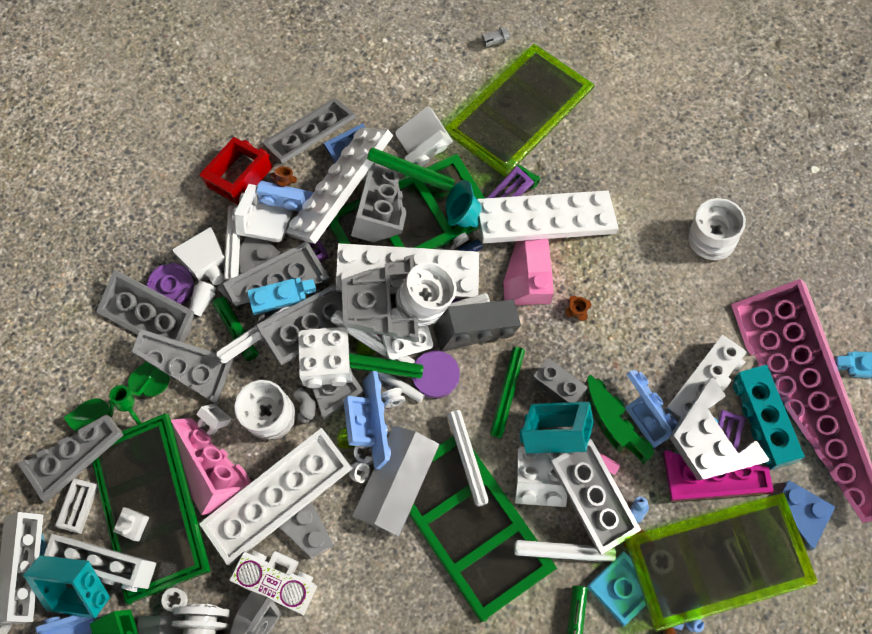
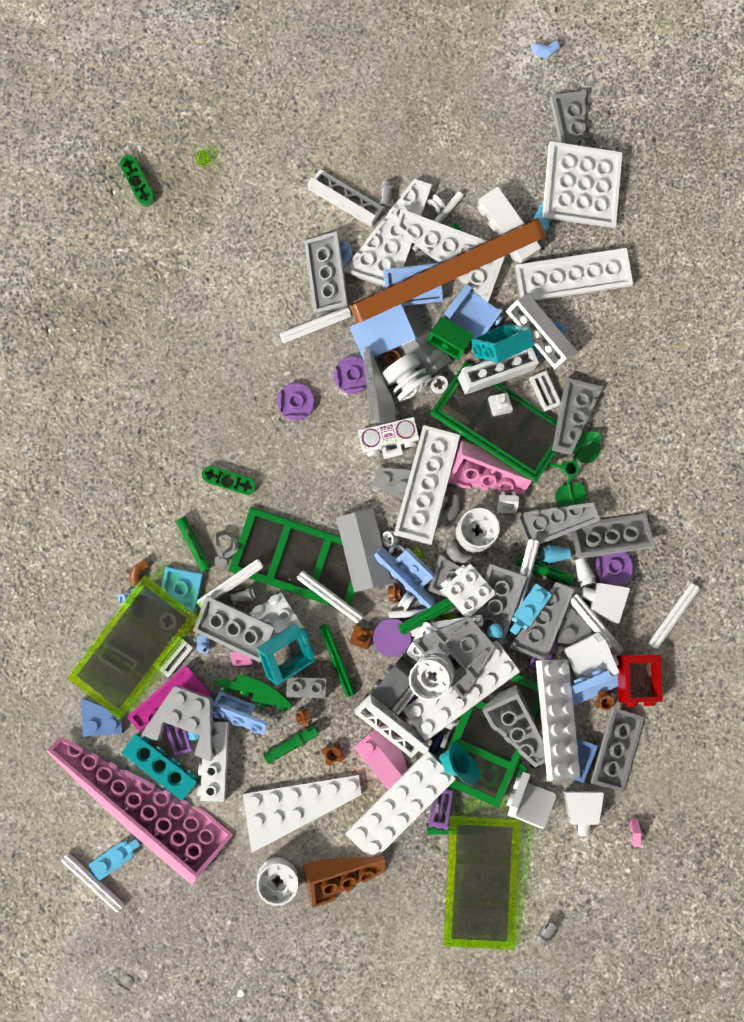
camera: 140 degrees right, 15 degrees up
(157, 204) = (674, 616): none -> white axle
(212, 336) = (554, 553): none -> medium azure cone
(271, 454) = (453, 510): none -> light grey arm
(330, 297) = (495, 630): none -> medium azure hinge
(351, 57) = (636, 837): none -> bright pink tile
(380, 104) = (584, 809): none -> white torso
(398, 413) = (395, 593): none -> dark orange plate
(410, 169) = (515, 763): green axle -> none
(466, 397) = (361, 637): none -> dark orange tile
(498, 289) = (394, 723): none -> white fence
(556, 585) = (221, 560): none -> light grey piece
(559, 528) = (243, 596): none -> light grey pin
(583, 360) = (303, 717): none -> dark orange plate
(616, 345) = (291, 744): none -> green pin
(662, 292) = (285, 809): none -> white wing
(663, 205) = (332, 876): none -> dark orange wedge
(695, 506) = (180, 660): none -> white tile

